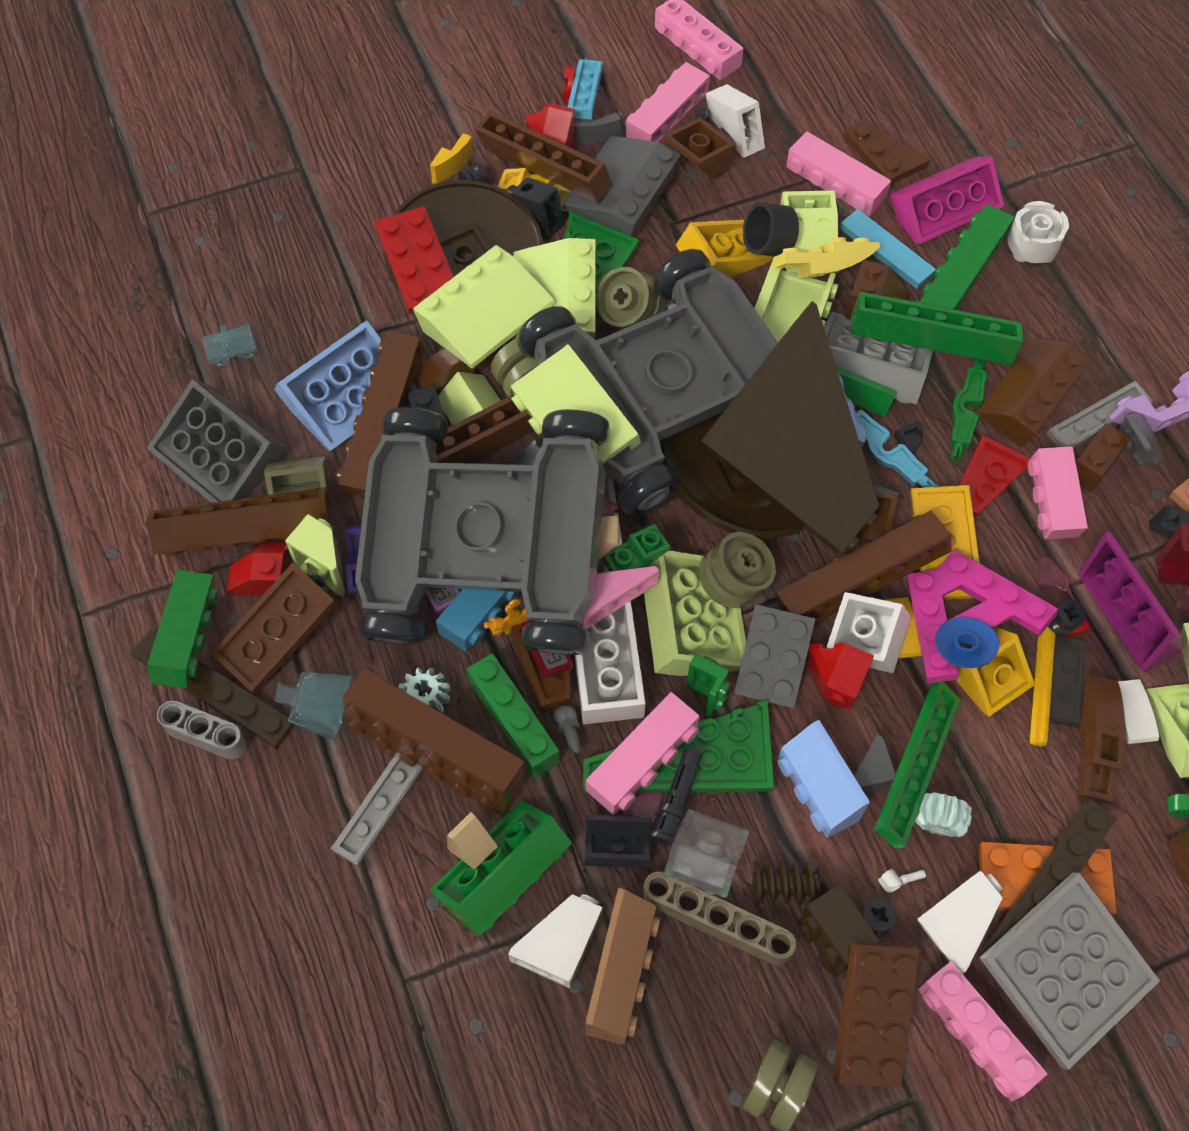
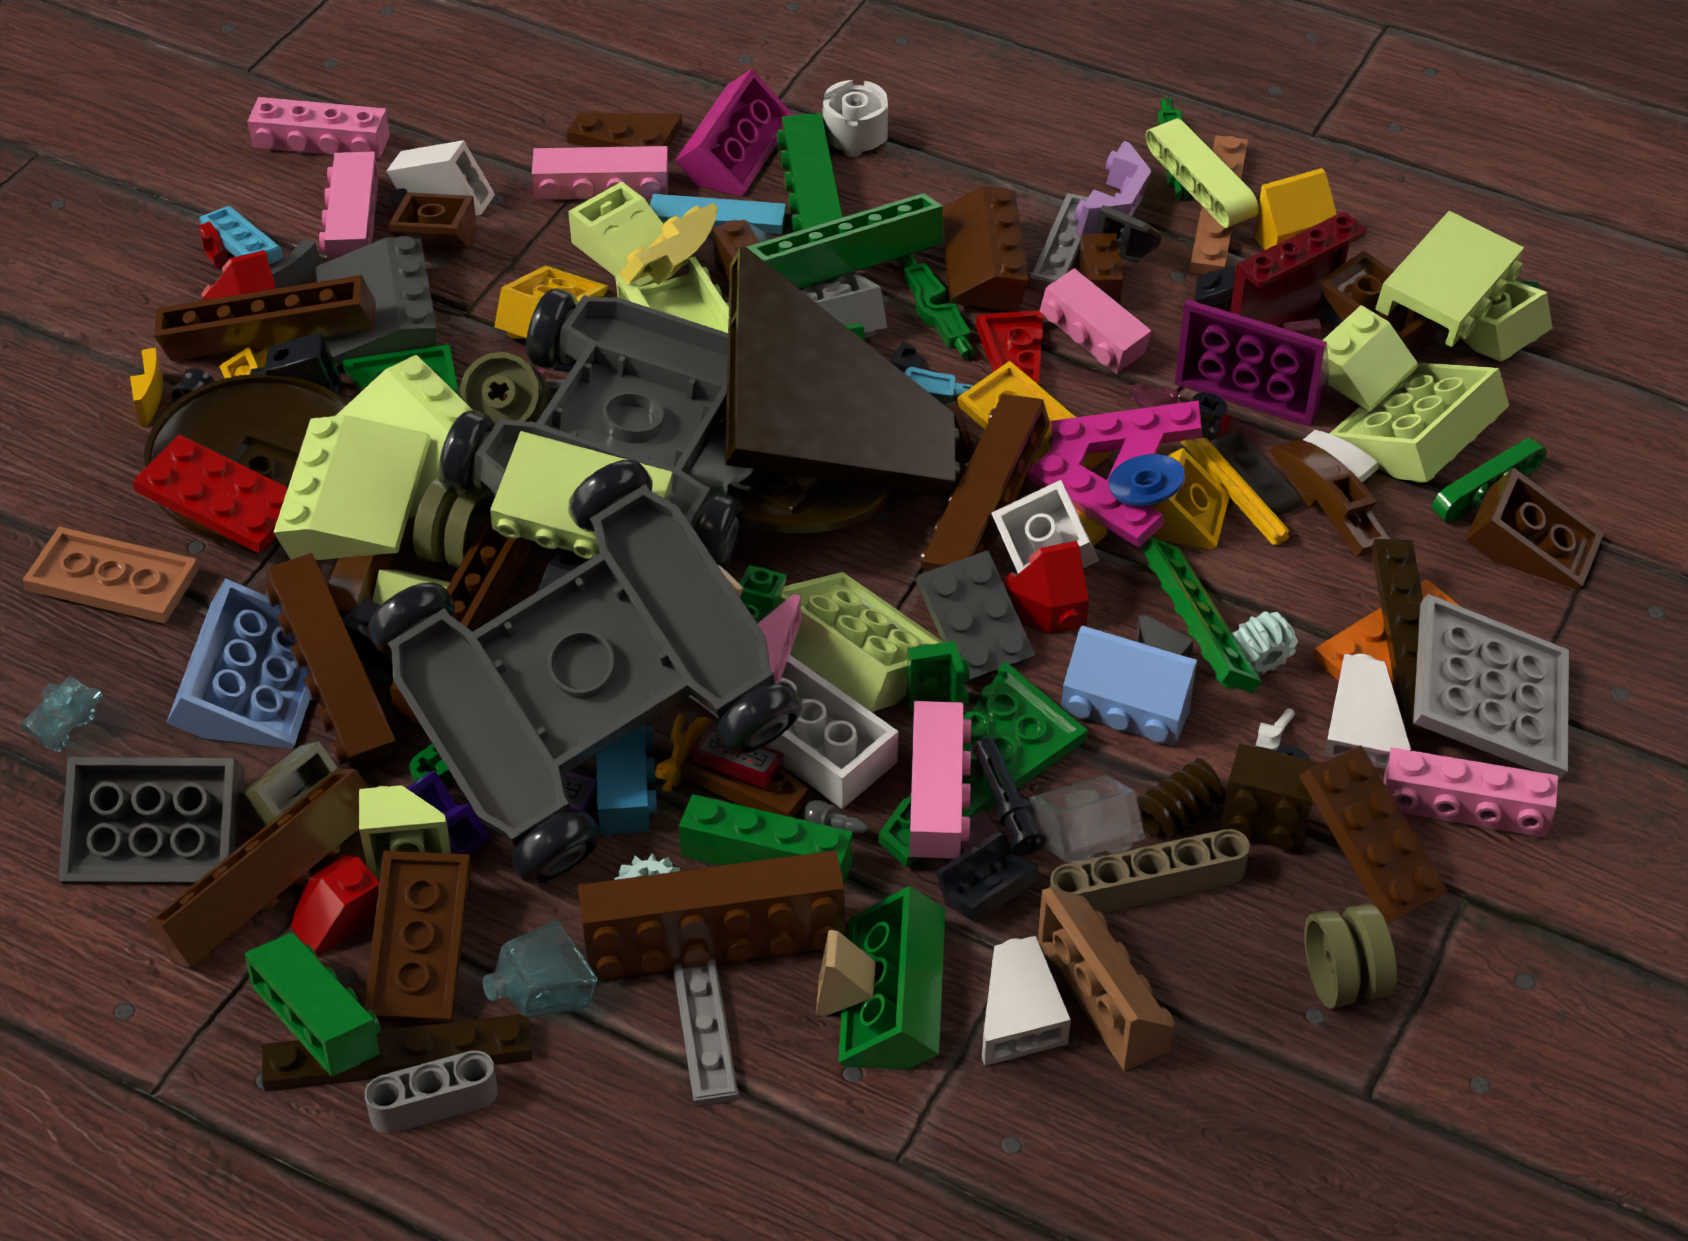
camera: 40 degrees left, 15 degrees down
(330, 272) = (111, 574): none -> nougat plate
(737, 570) = (864, 565): olive wheel -> none
(770, 229) = (570, 257): black piece -> none

